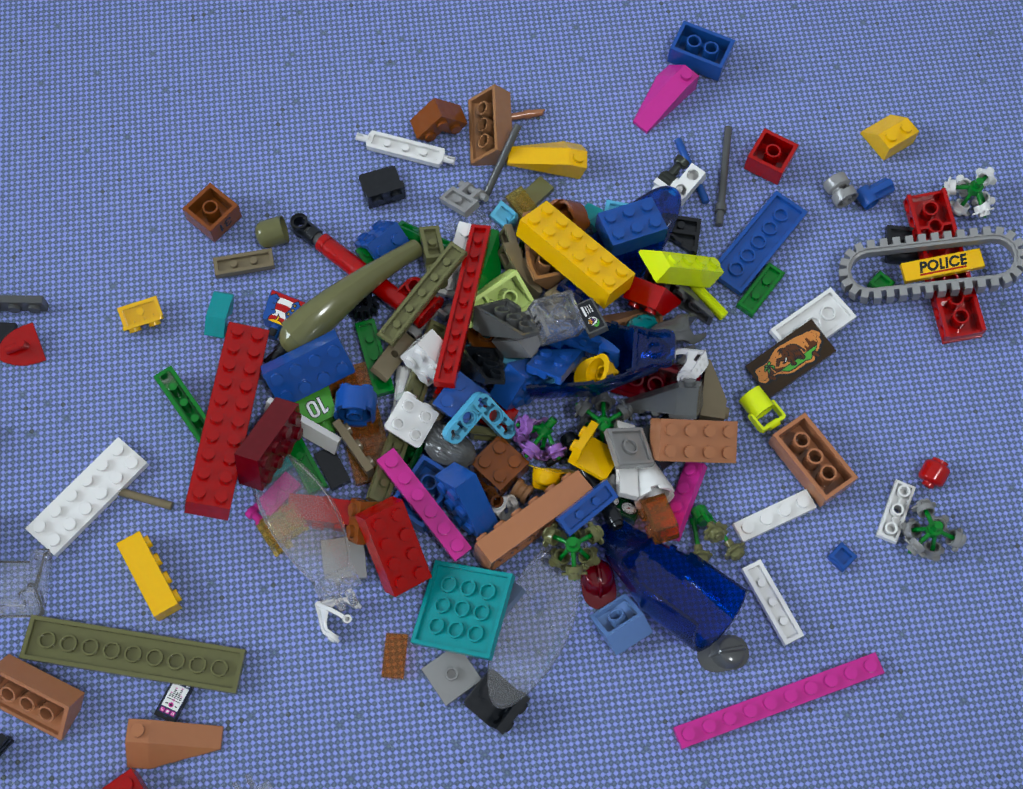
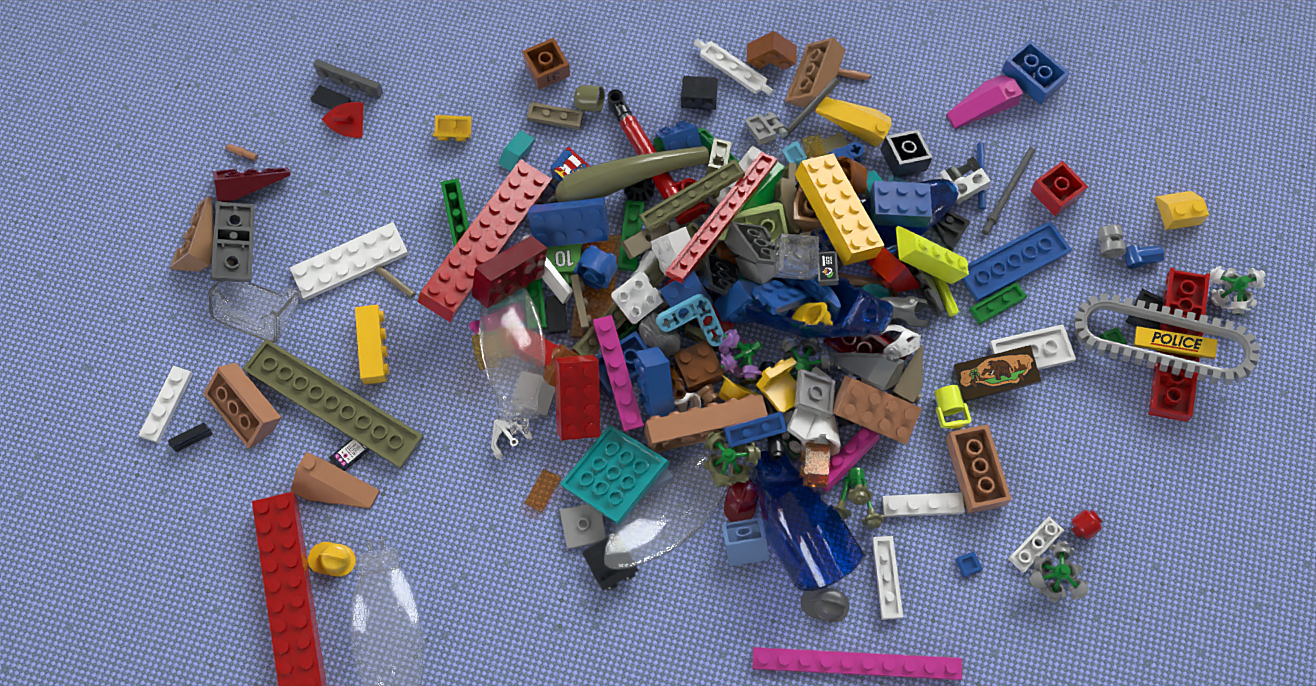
camera: 25 degrees right, 0 degrees up
(554, 193) = (848, 151): none -> blue piece
(612, 174) = (906, 153): none -> black brick

